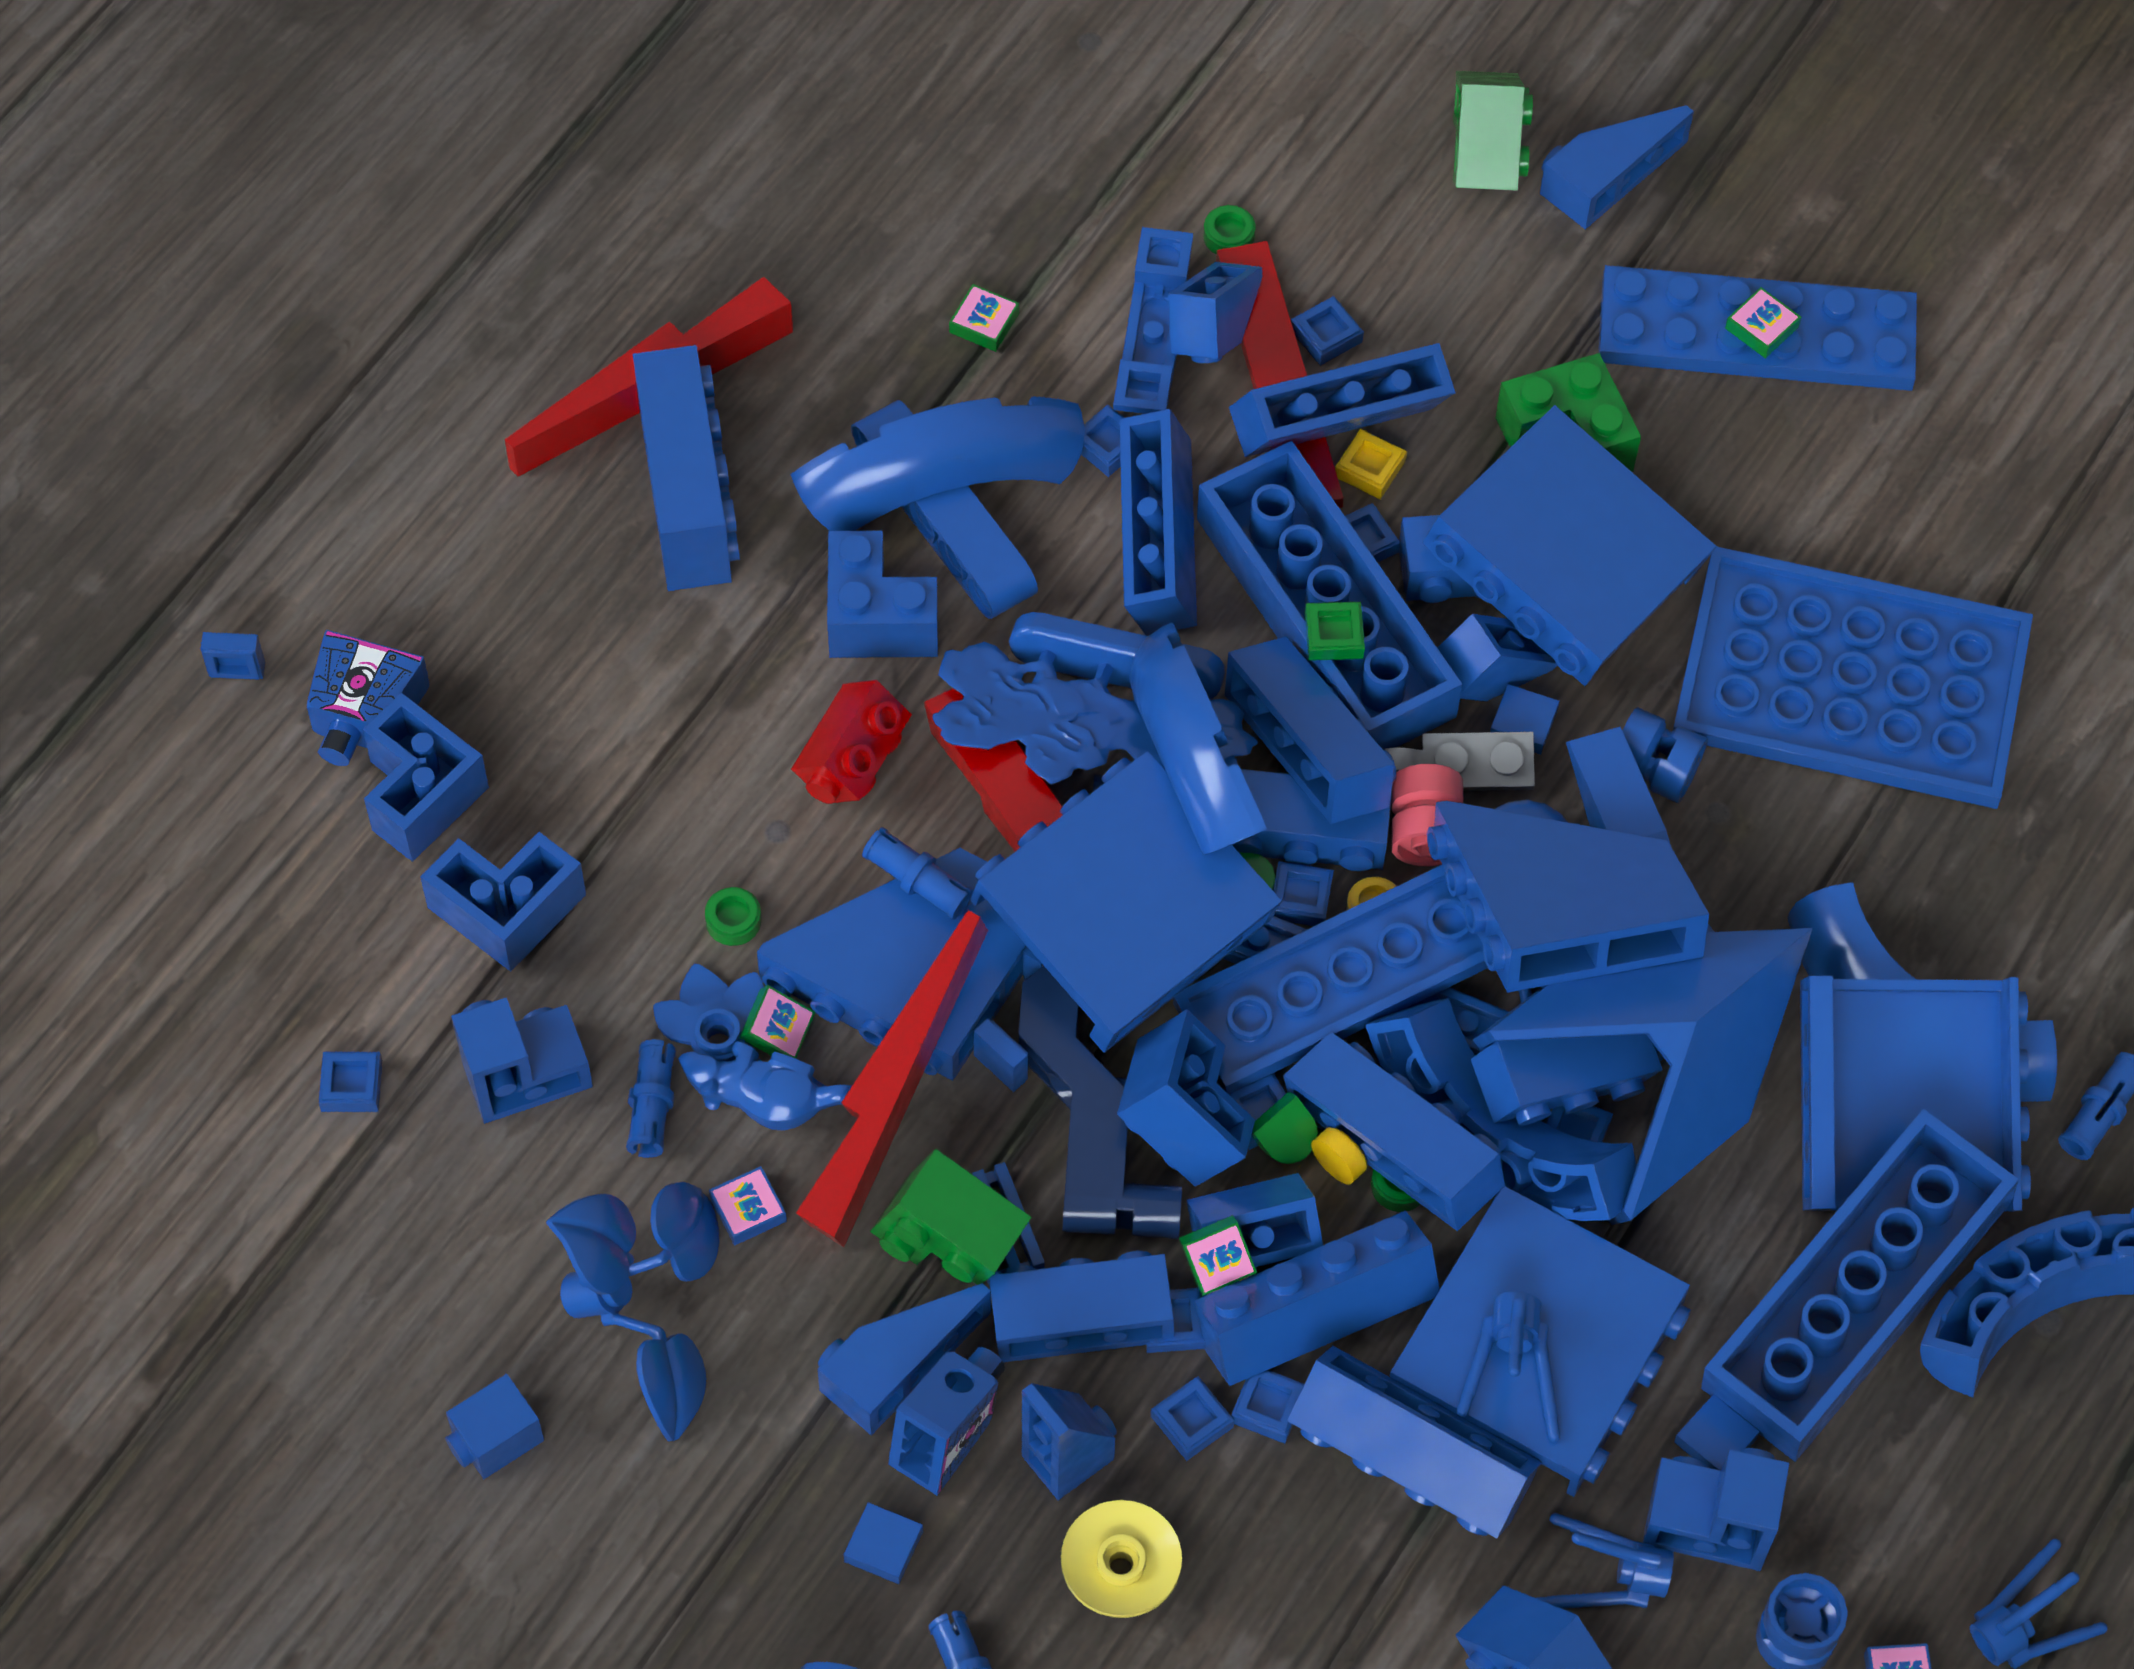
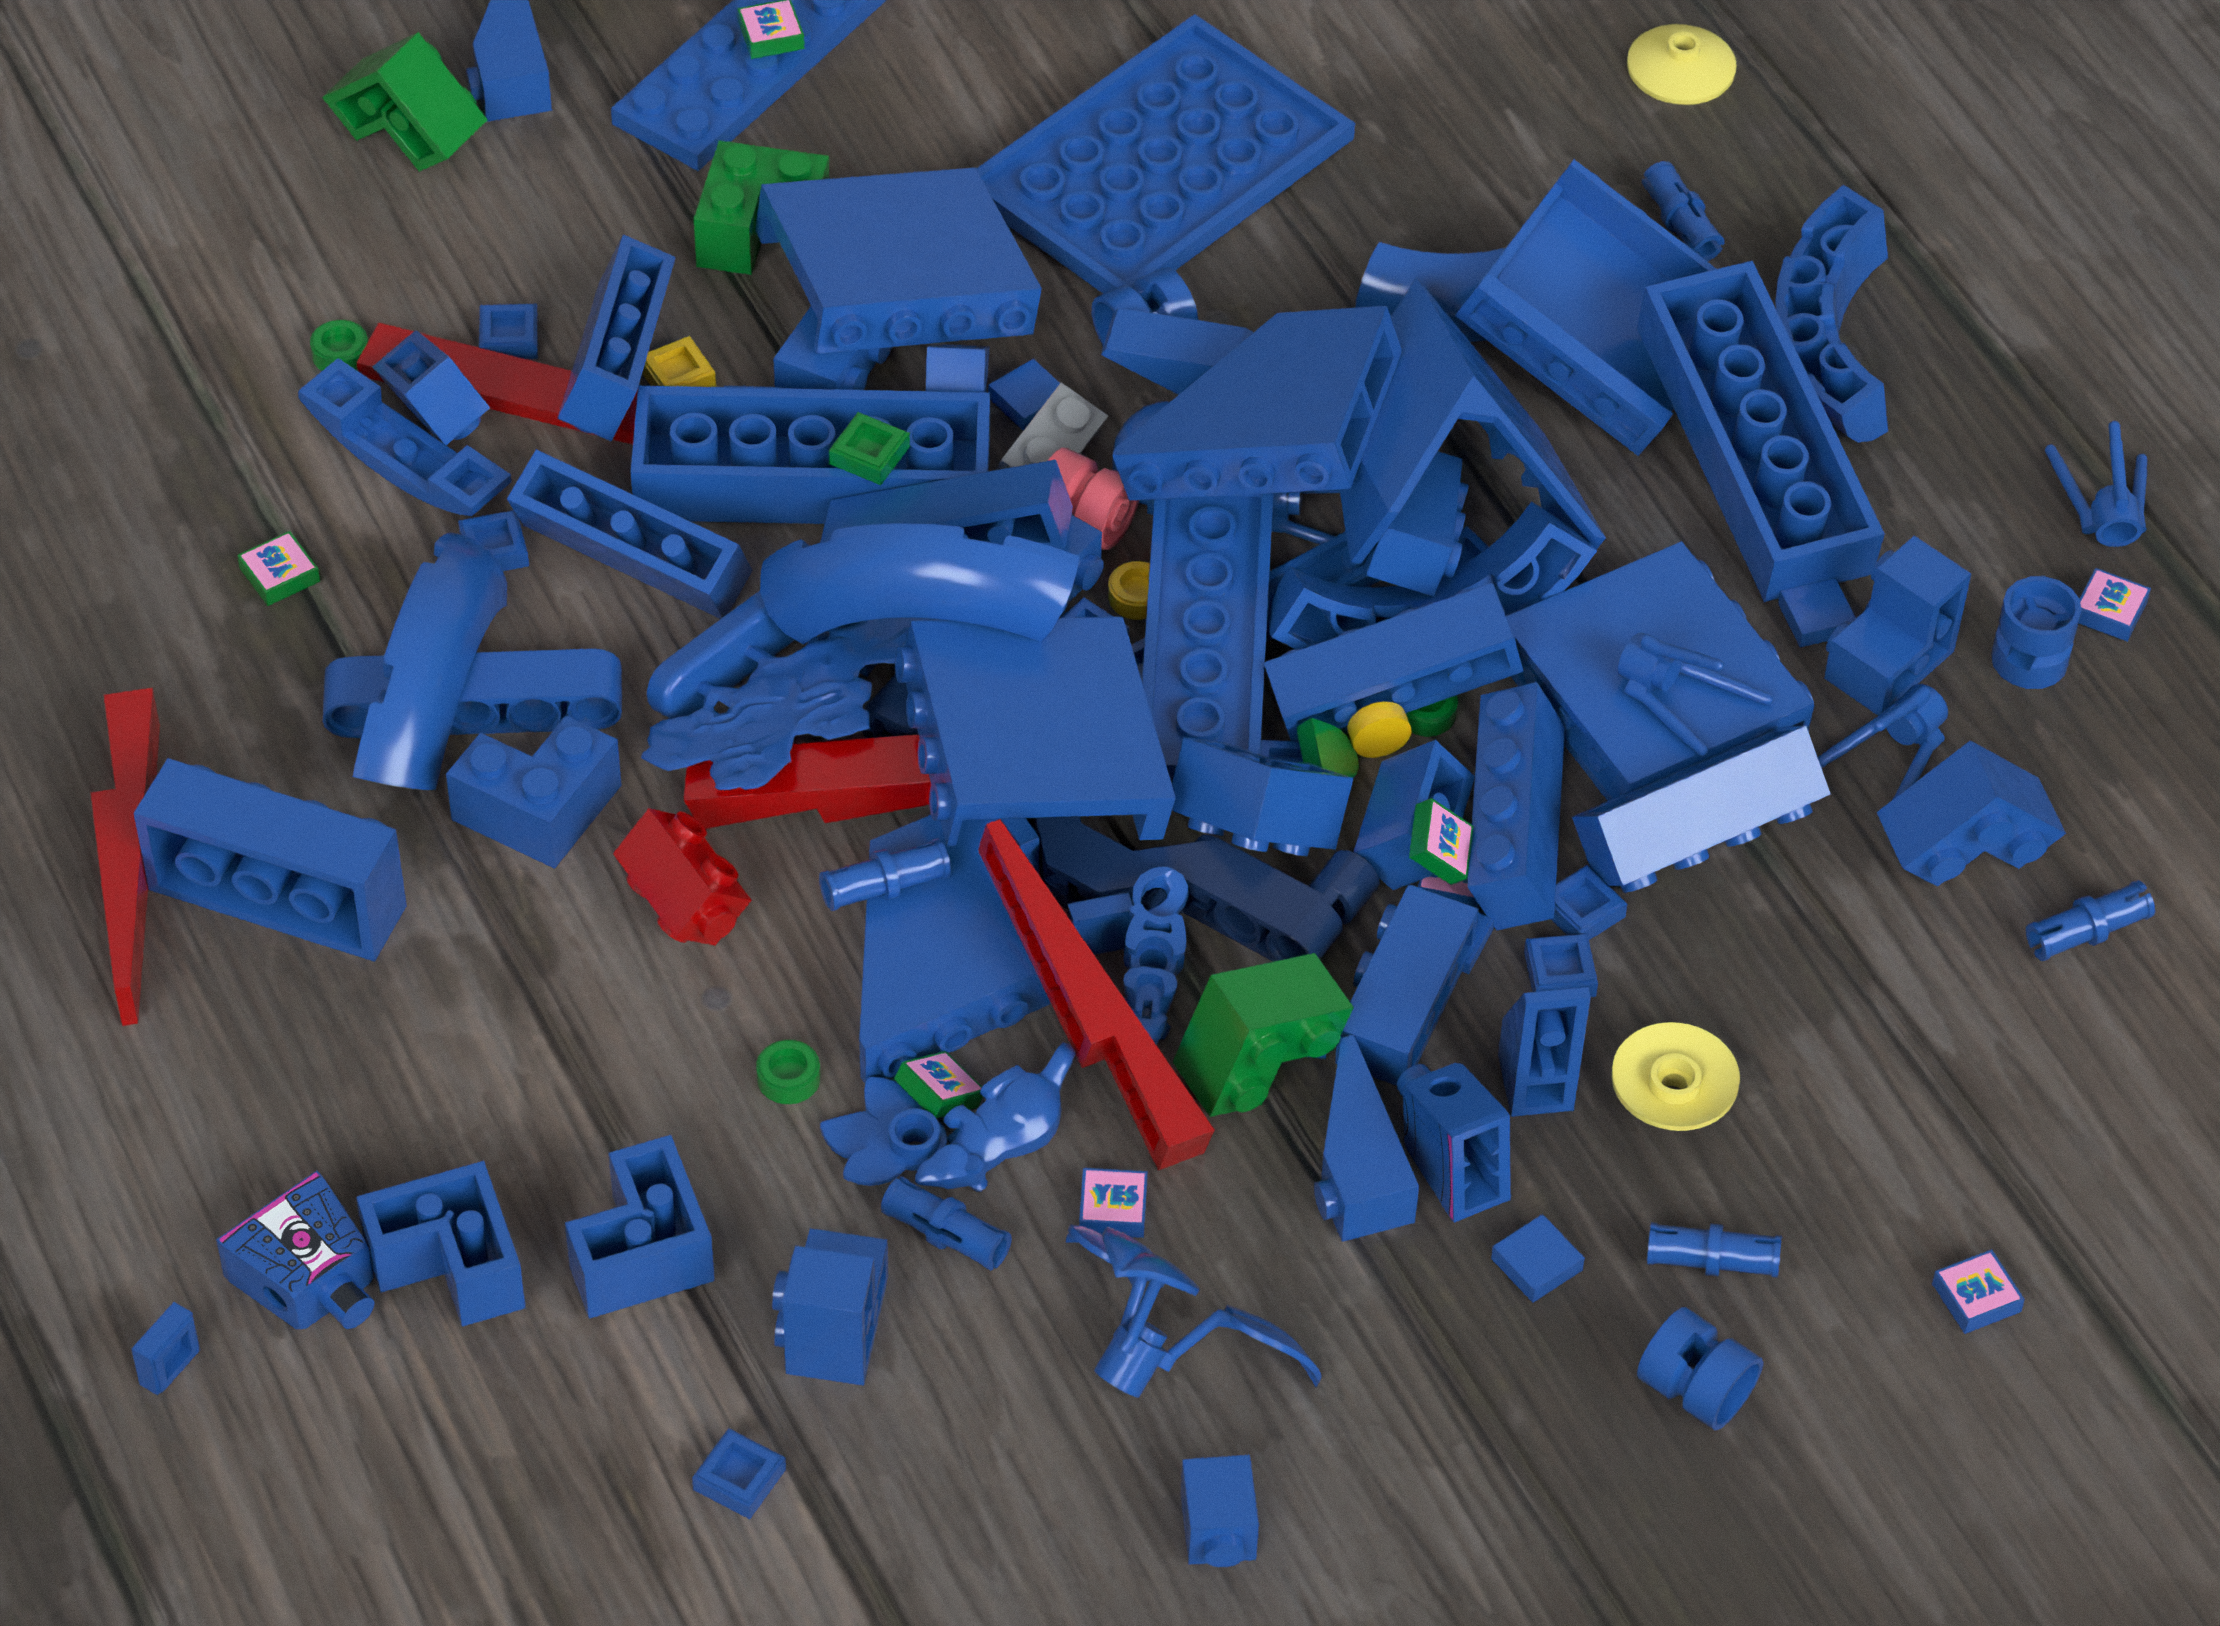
camera: 60 degrees left, 10 degrees down
(987, 1108) = (1155, 949): none -> blue animal

